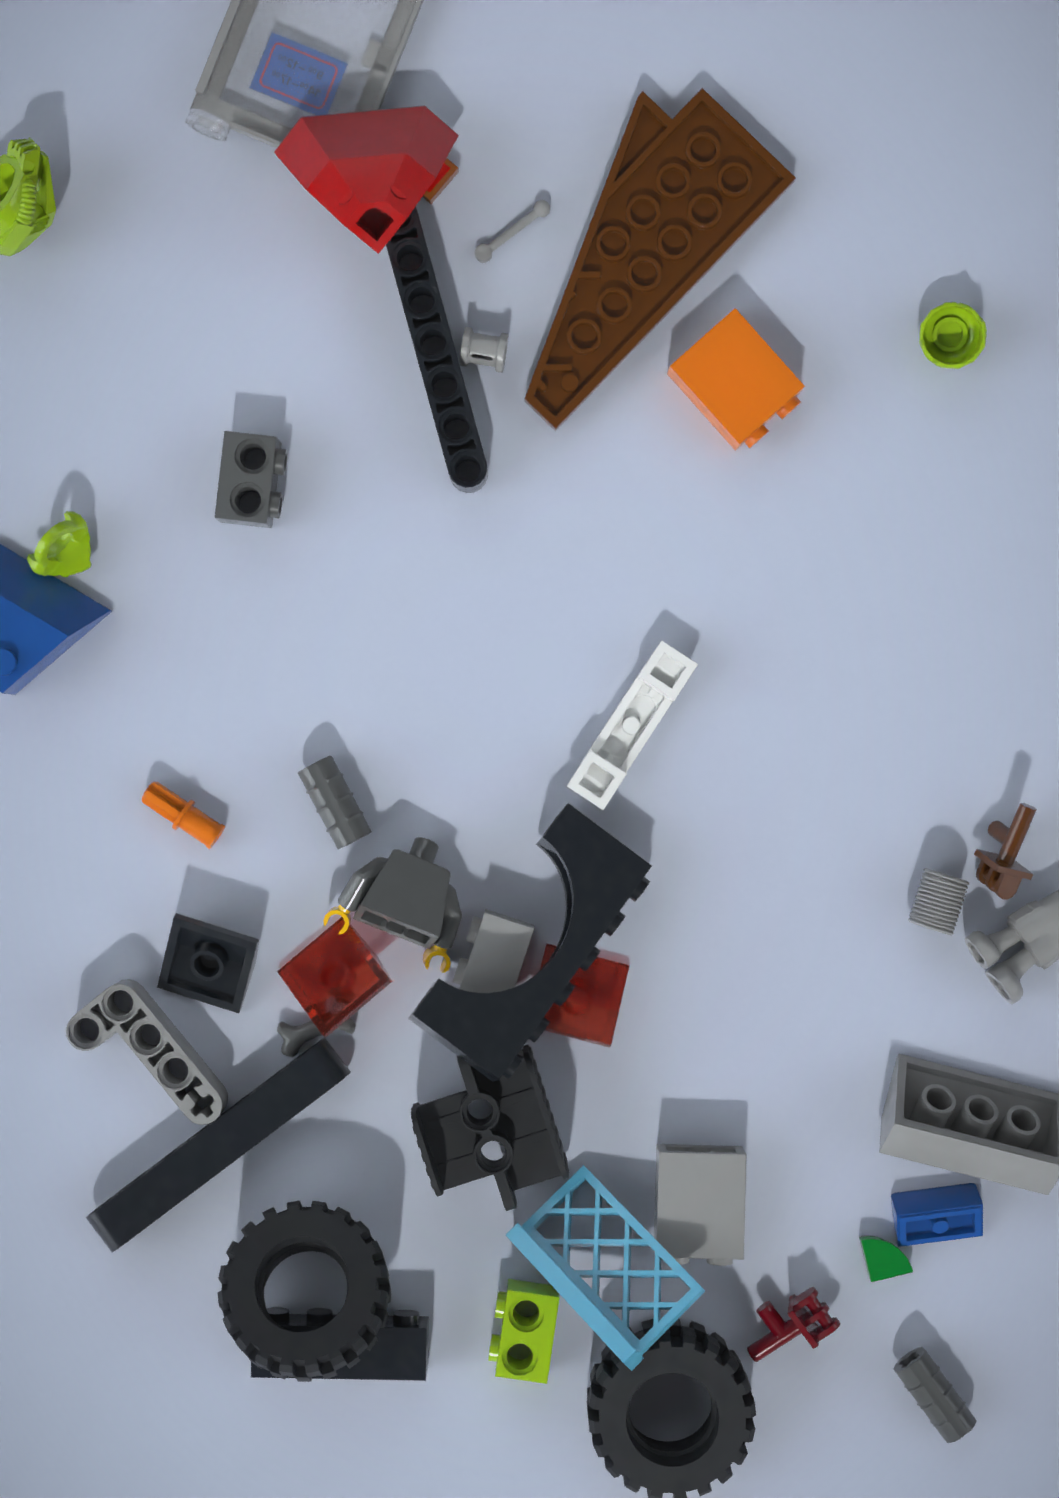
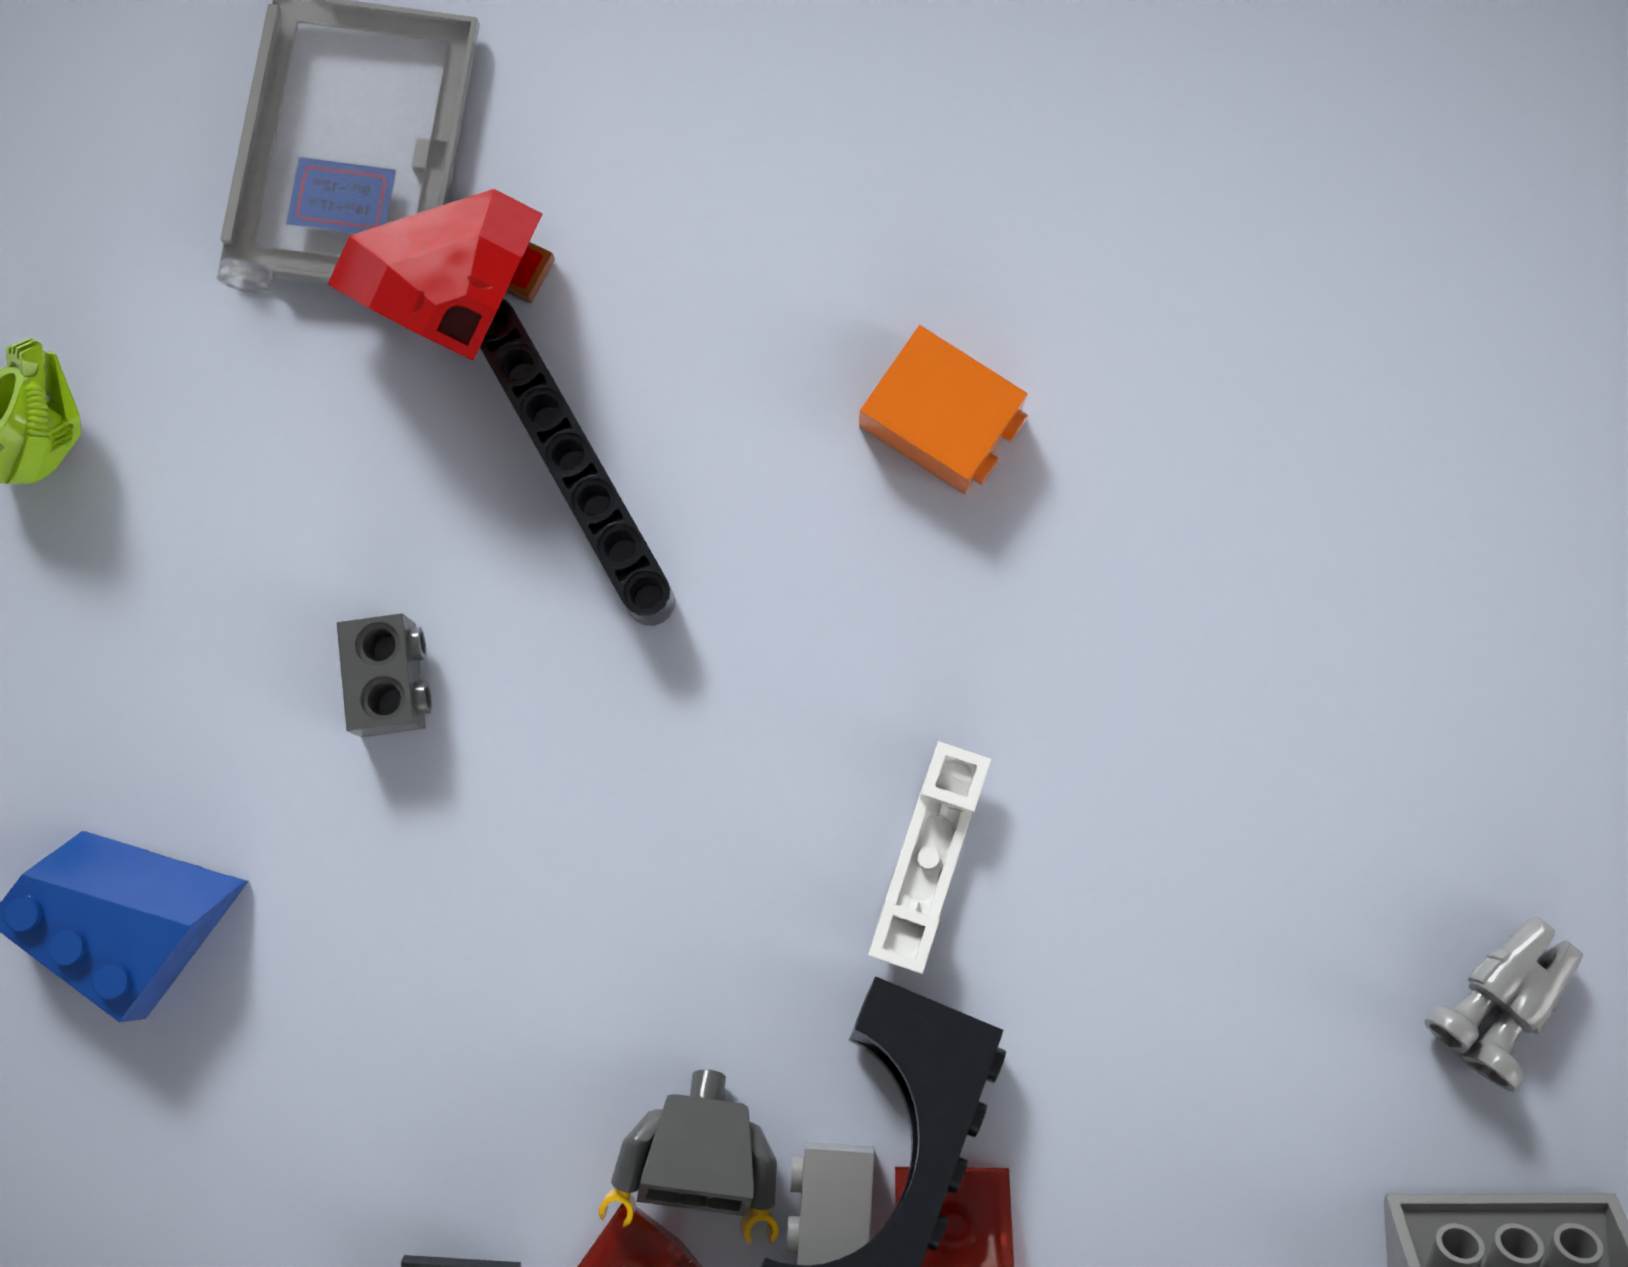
camera: 10 degrees left, 10 degrees down
(63, 548) = (174, 826): lime piece -> none
(182, 814) = (389, 1119): orange axle -> none
(334, 802) = (579, 1053): dark grey axle -> none
(483, 349) = (632, 450): light grey bush -> none
(484, 252) = (605, 340): light grey hinge -> none
(663, 221) = (803, 262): reddish brown wing -> none
(938, 901) = (1377, 981): light grey piece -> none
(952, 335) = (1184, 294): lime hair -> none
(1000, 870) = (1442, 920): reddish brown arm -> none

